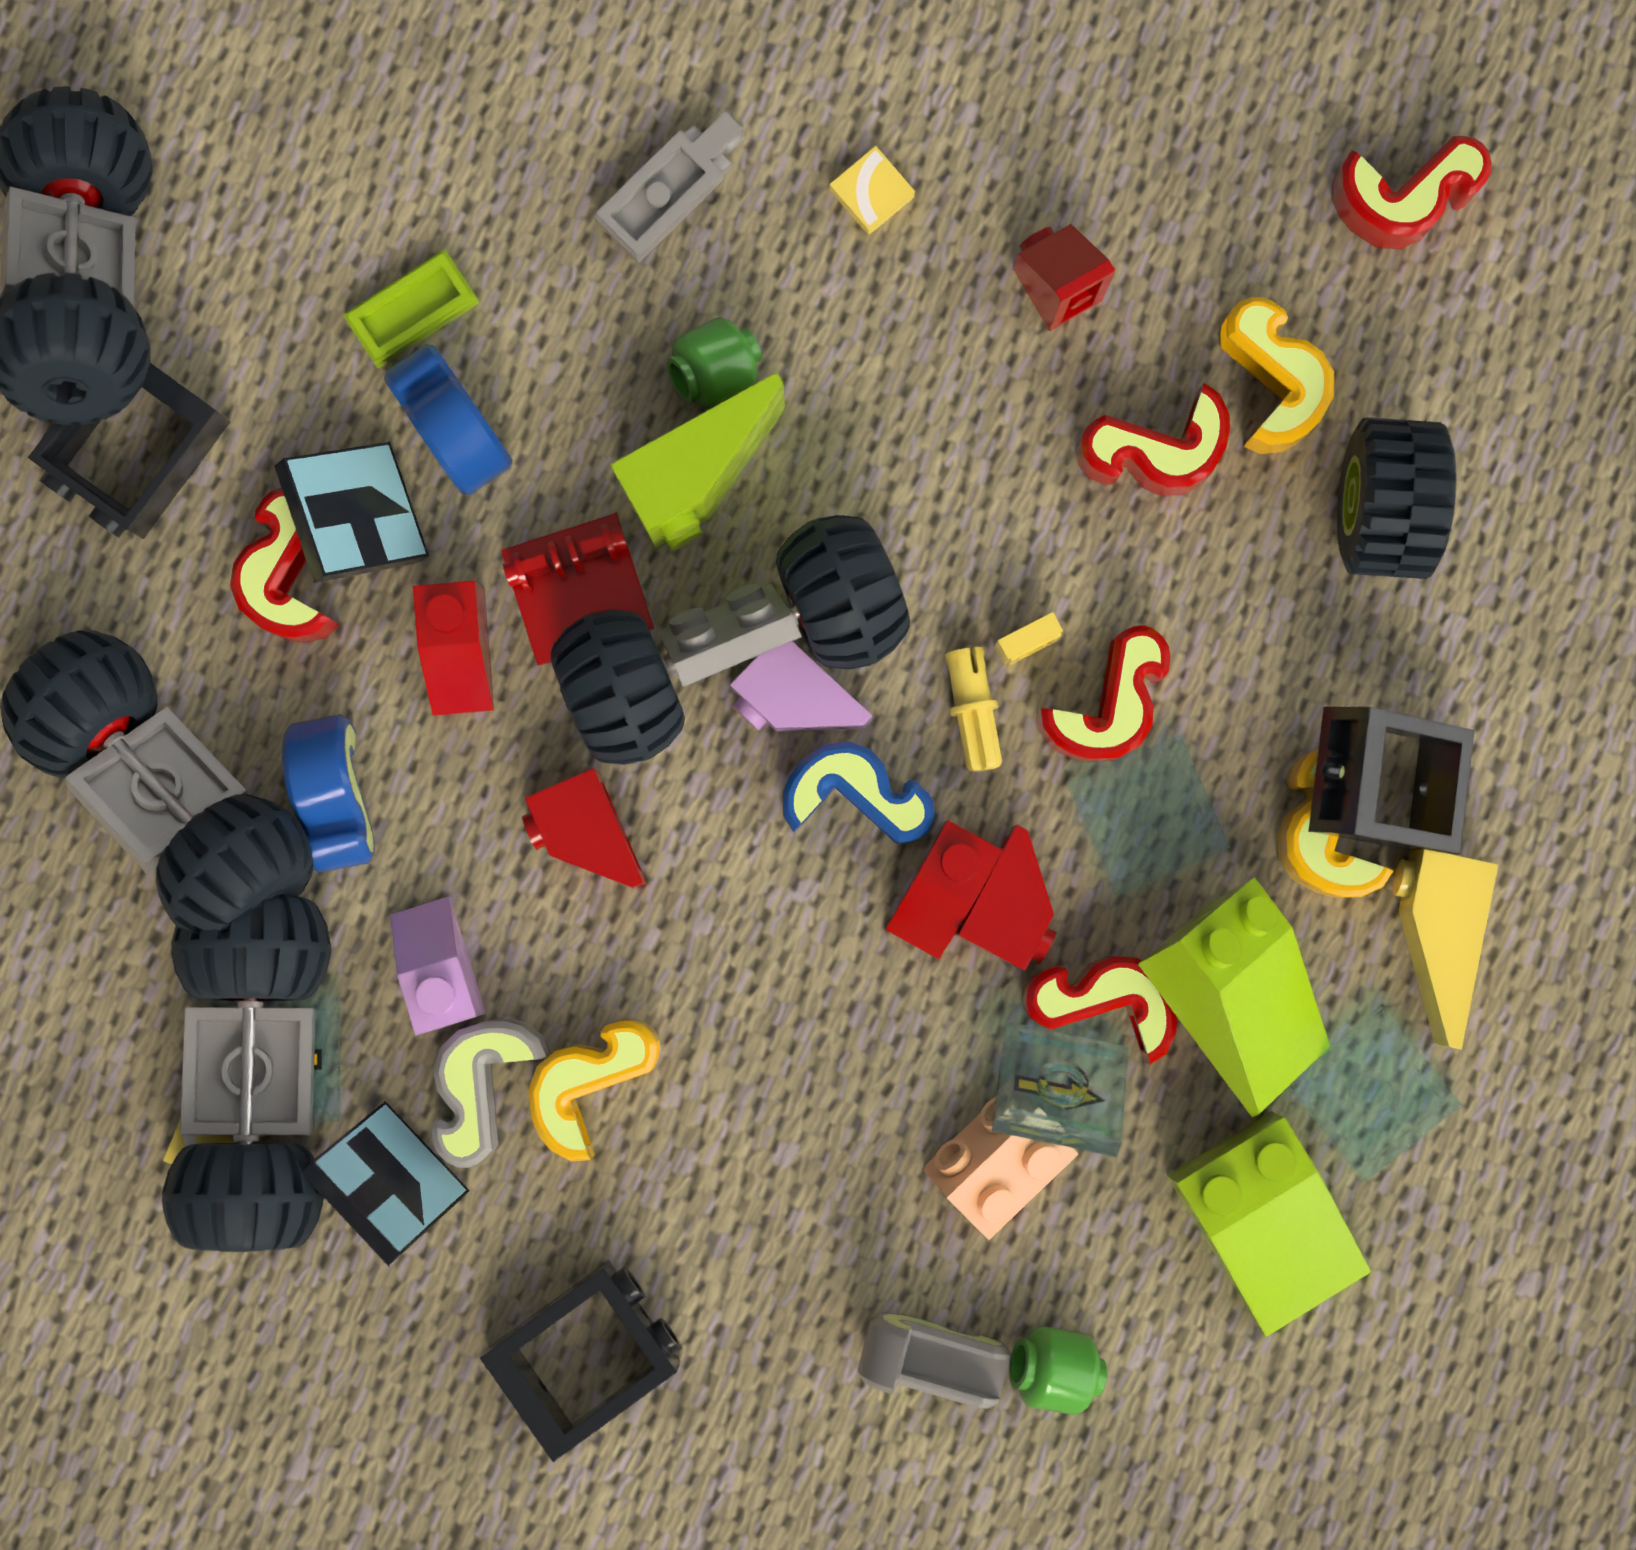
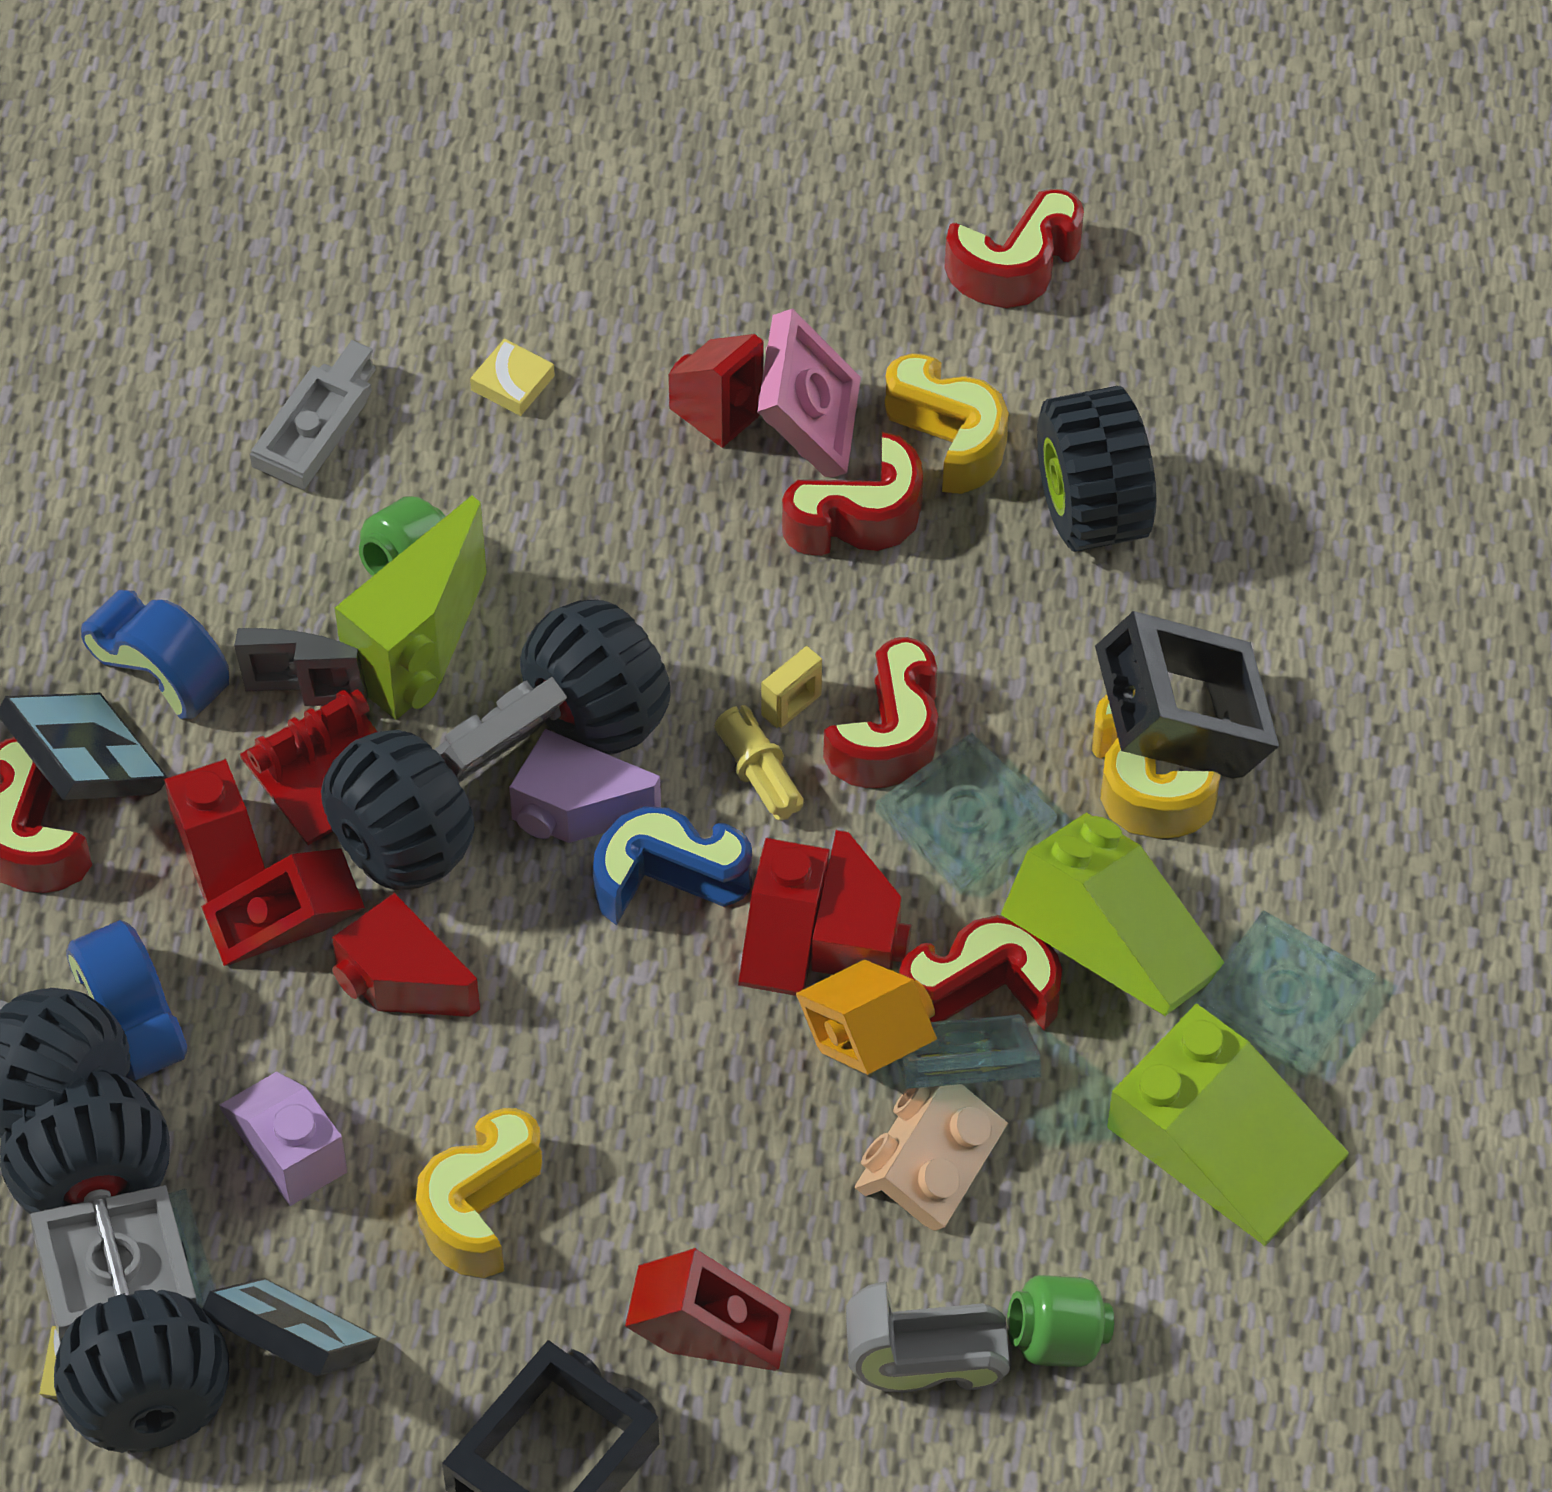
camera: 20 degrees left, 30 degrees down
(411, 308) = (88, 579): lime tile -> none
(466, 1085) = (344, 1225): light grey animal -> none
(495, 740) = (283, 904): none -> red slope
(587, 486) = (298, 662): none -> dark grey slope
(753, 1268) = (707, 1312): none -> red slope
(983, 1033) = (868, 1016): none -> light orange brick
(1146, 316) = (809, 394): none -> bright pink plate
(1445, 924) = (1292, 824): light yellow slope -> none

